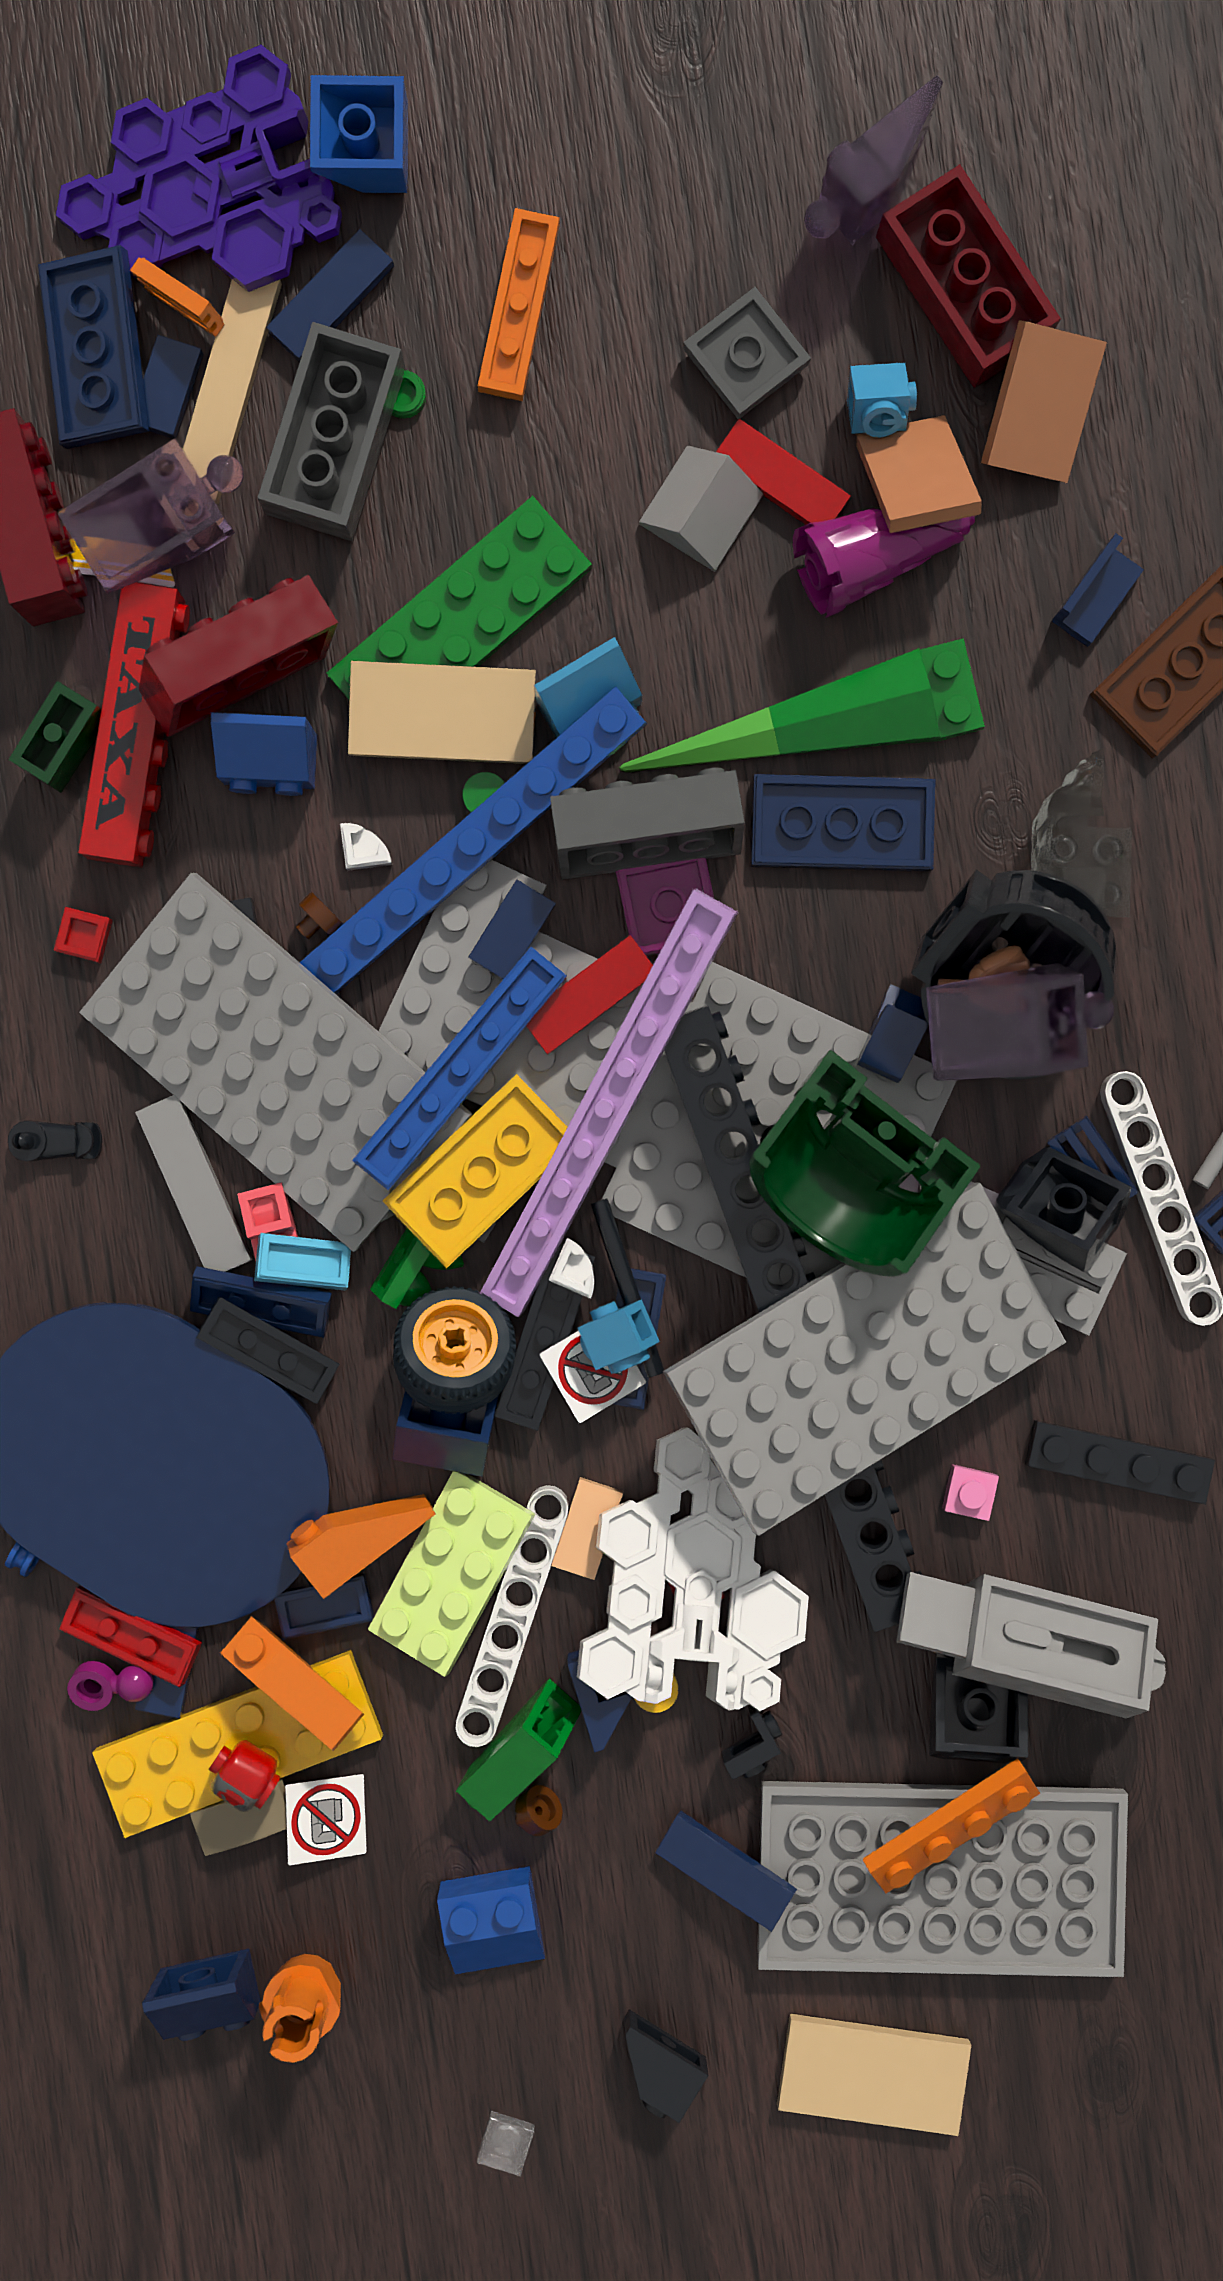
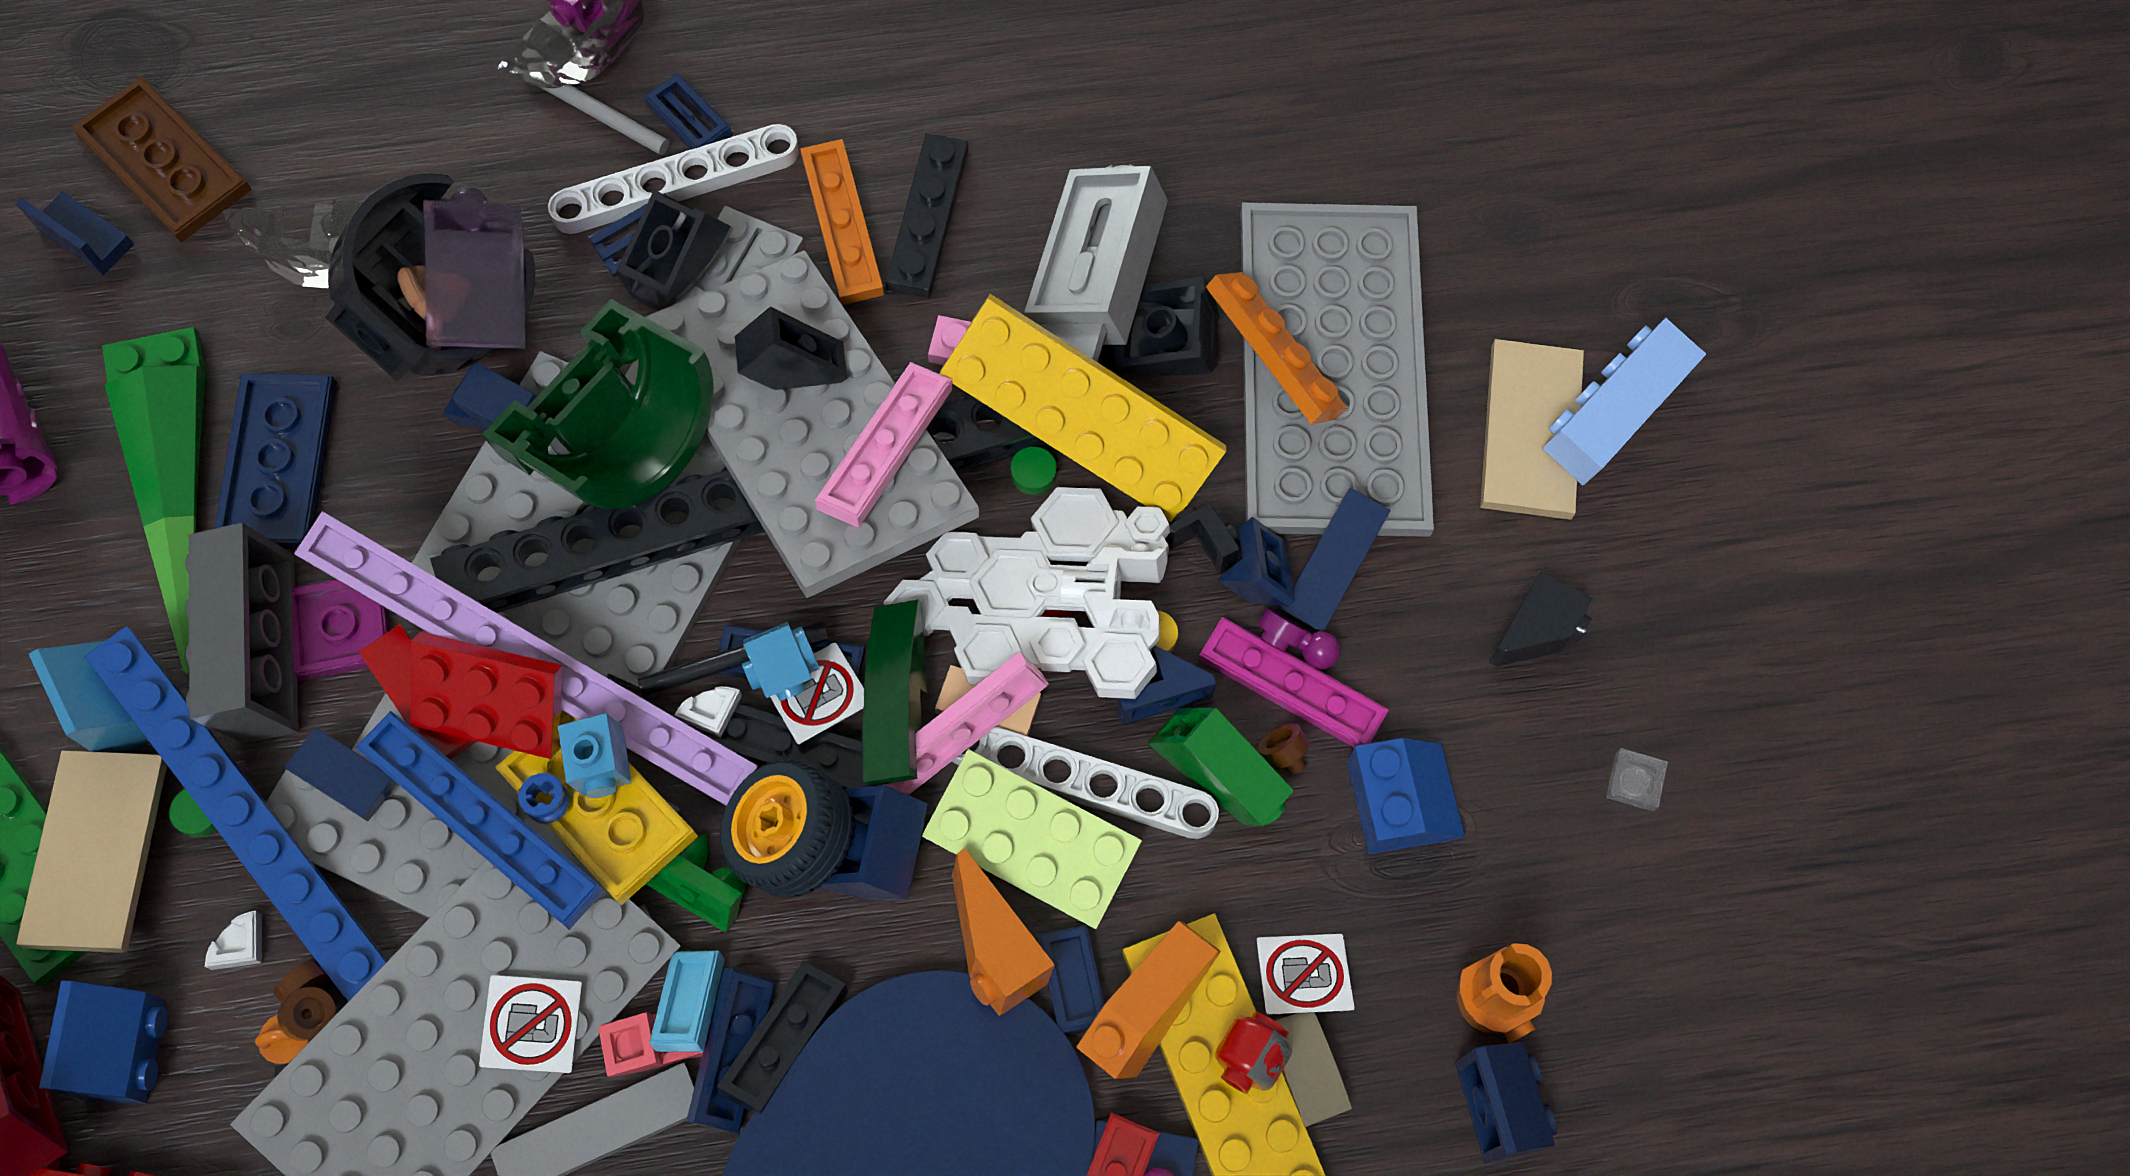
camera: 90 degrees left, 20 degrees down
(275, 903) = (276, 1045): none -> orange tile
(279, 1126) = (530, 1024): none -> sticker
(288, 926) = (317, 1010): none -> reddish brown tile
(493, 1126) = (544, 783): none -> blue bush
(509, 1177) = (594, 755): none -> dark azure brick
(548, 1509) = (973, 717): none -> bright pink tile
(572, 1069) = (485, 695): none -> red plate
(586, 1446) = (892, 693): none -> dark green slope
(604, 1820) = (1292, 684): none -> dark pink tile
(654, 1815) = (1319, 649): none -> magenta plate
(715, 1804) = (1264, 570): none -> dark blue slope
(823, 1444) = (883, 445): none -> bright pink tile
(828, 1572) = (1033, 470): none -> green tile
(873, 1632) = (1082, 408): none -> yellow plate
(896, 2174) = (1623, 402): none -> light blue brick
(923, 1344) = (788, 353): none -> black slope
(1108, 1374) = (842, 222): none -> orange plate

